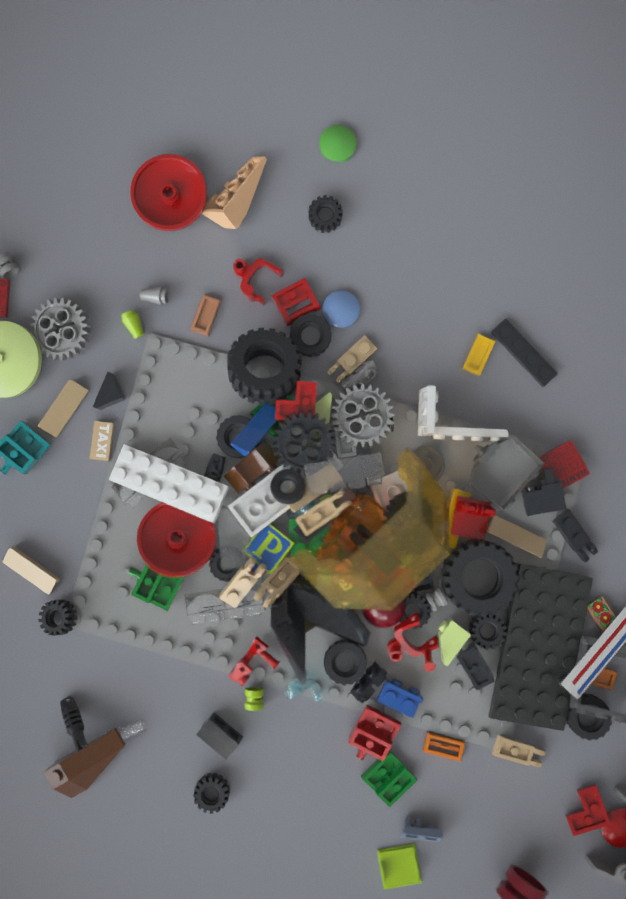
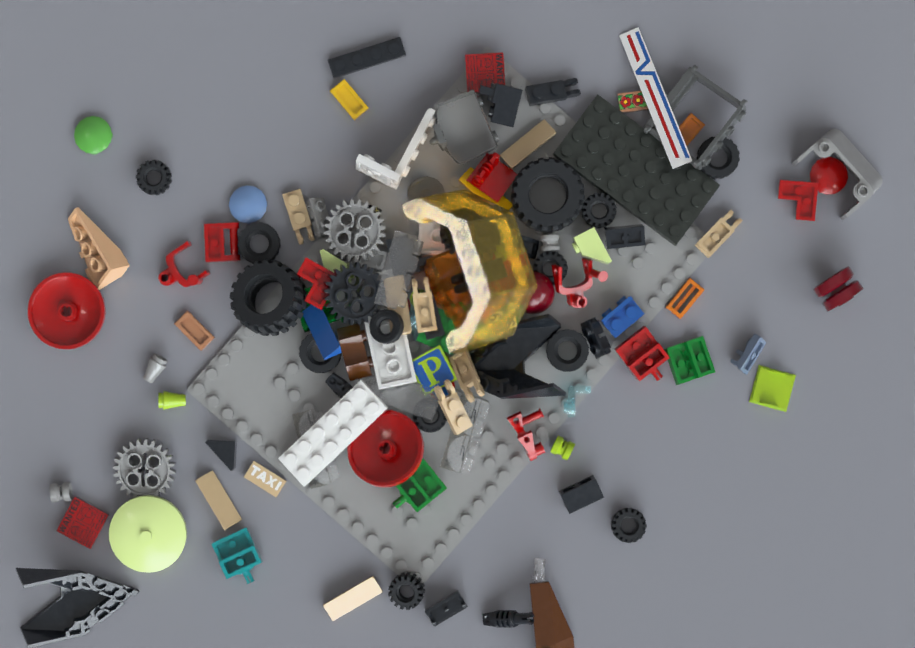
camera: 65 degrees left, 0 degrees up
(60, 659) = (446, 608): none -> black hinge

